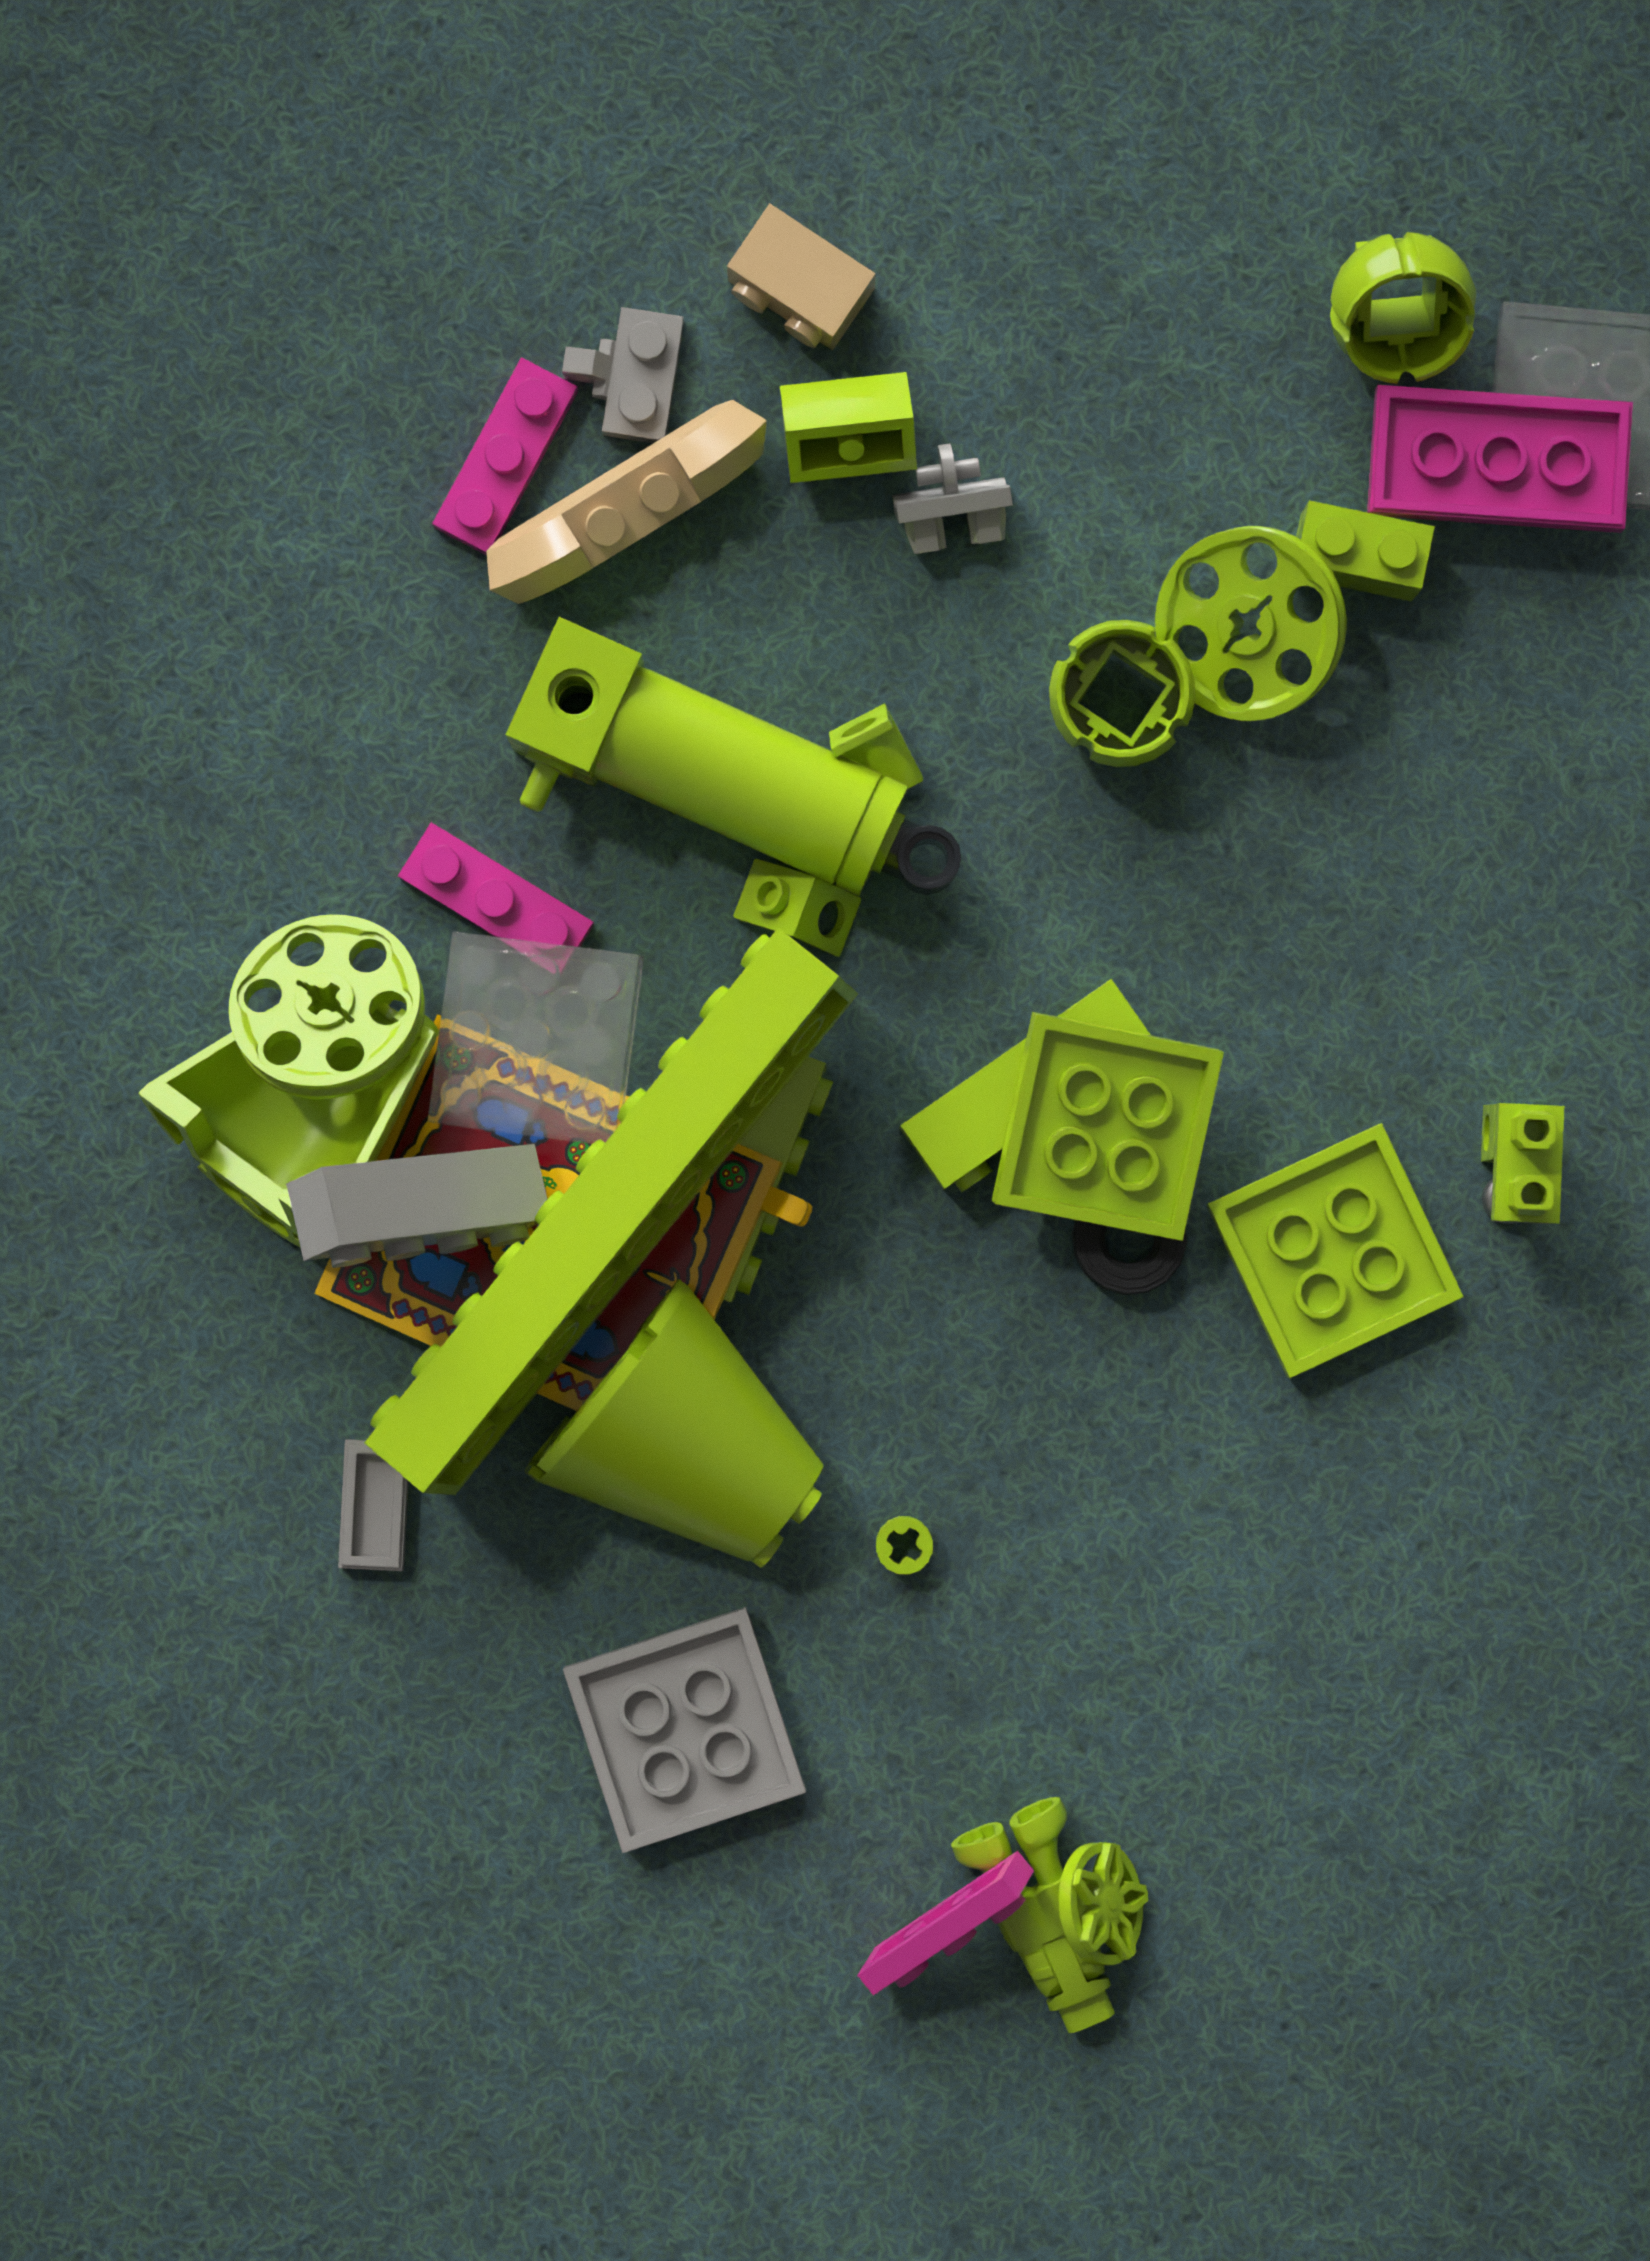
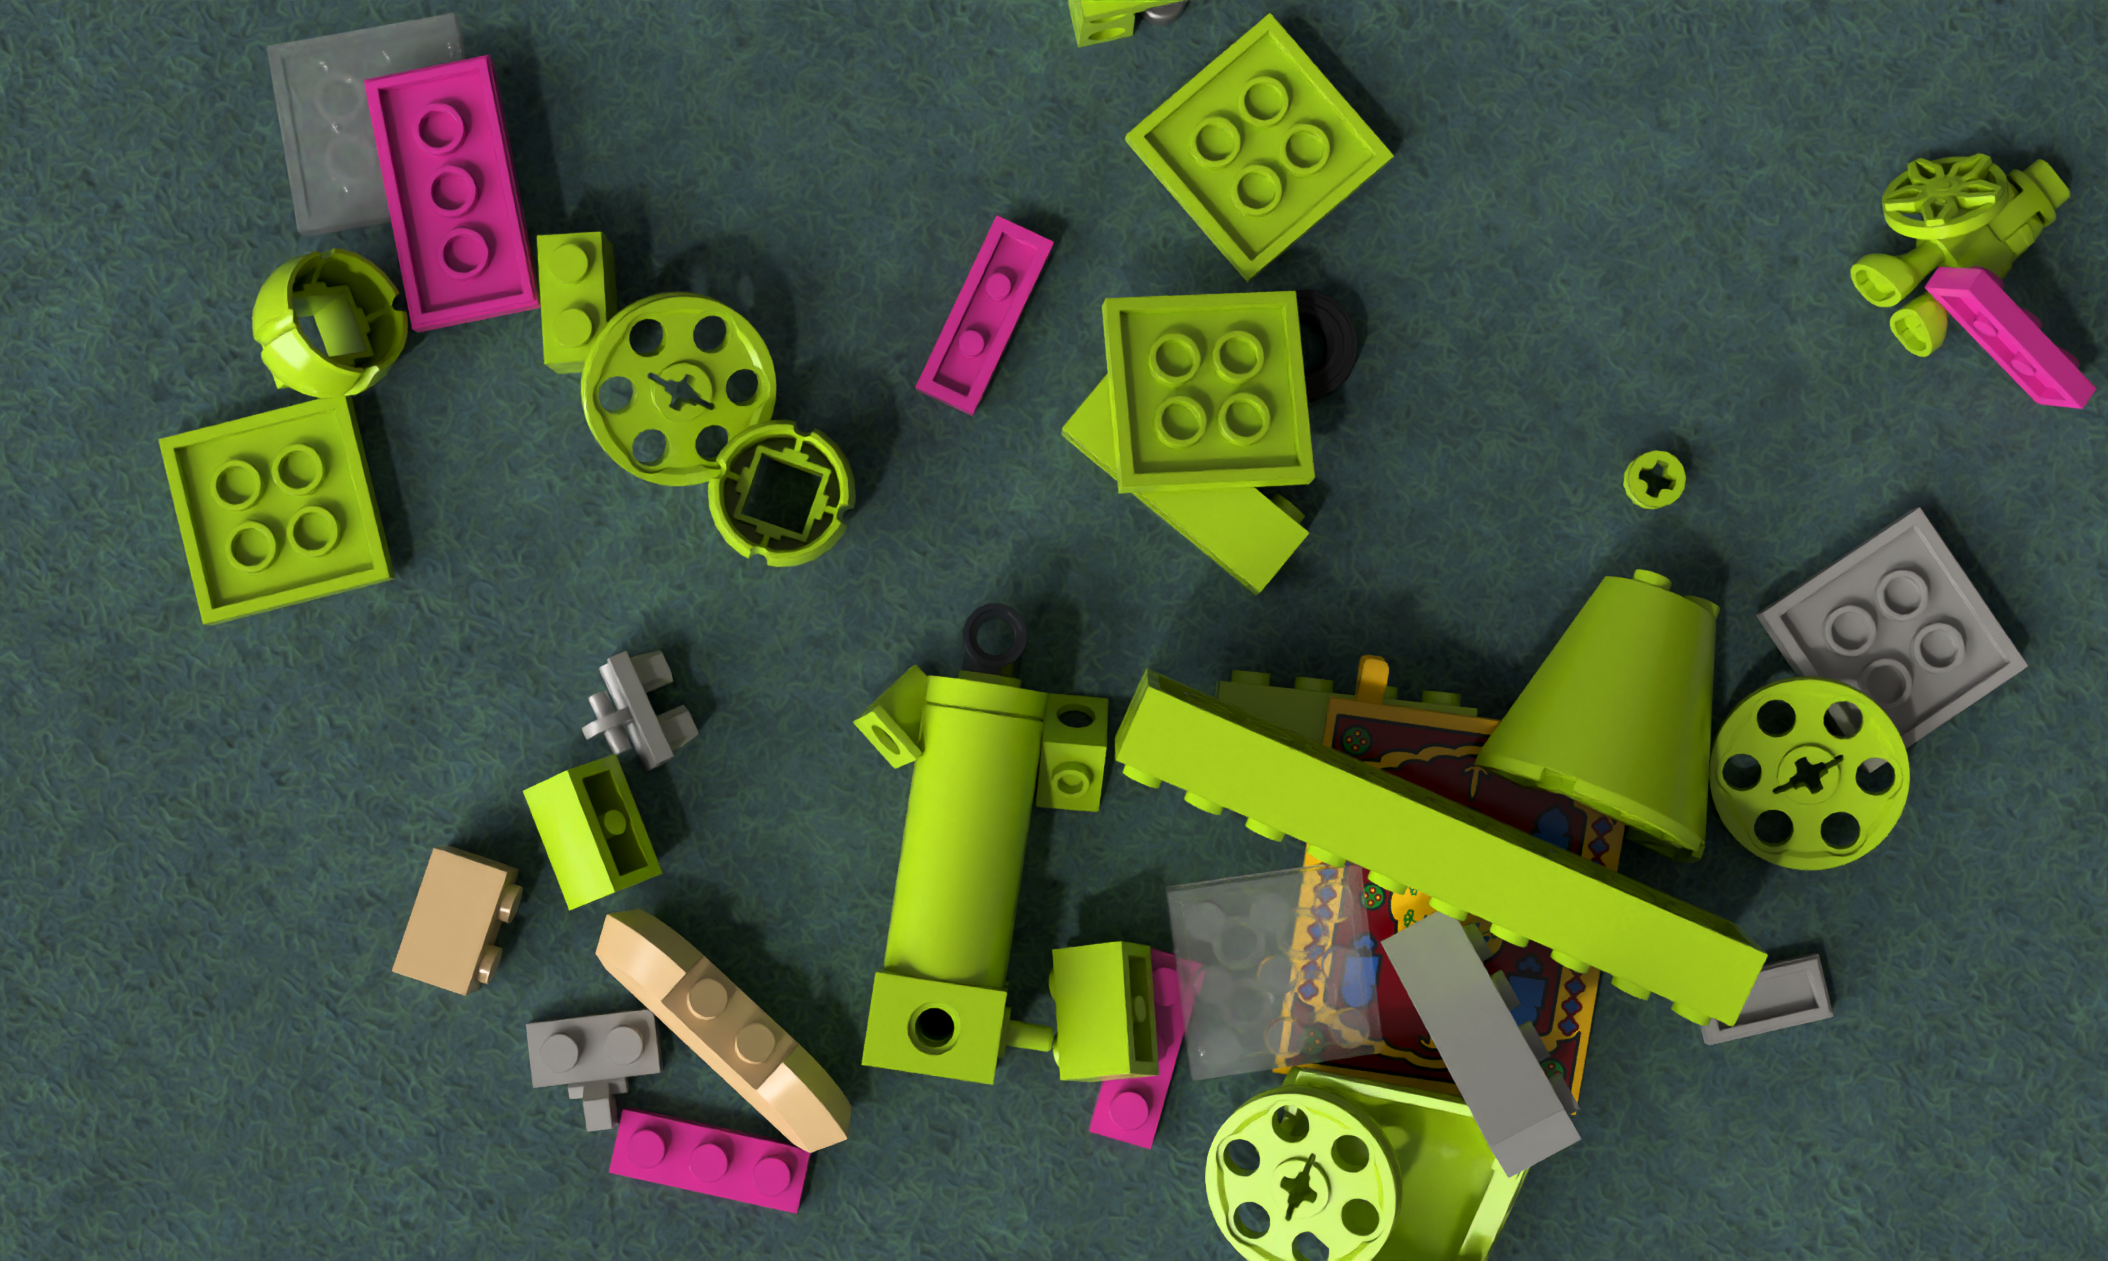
camera: 110 degrees left, 0 degrees up
(541, 865) = (1104, 1012): none -> lime brick
(557, 1632) = (1838, 789): none -> lime wedge
(1241, 211) = (276, 509): none -> lime plate
(1242, 939) = (985, 316): none -> dark pink plate

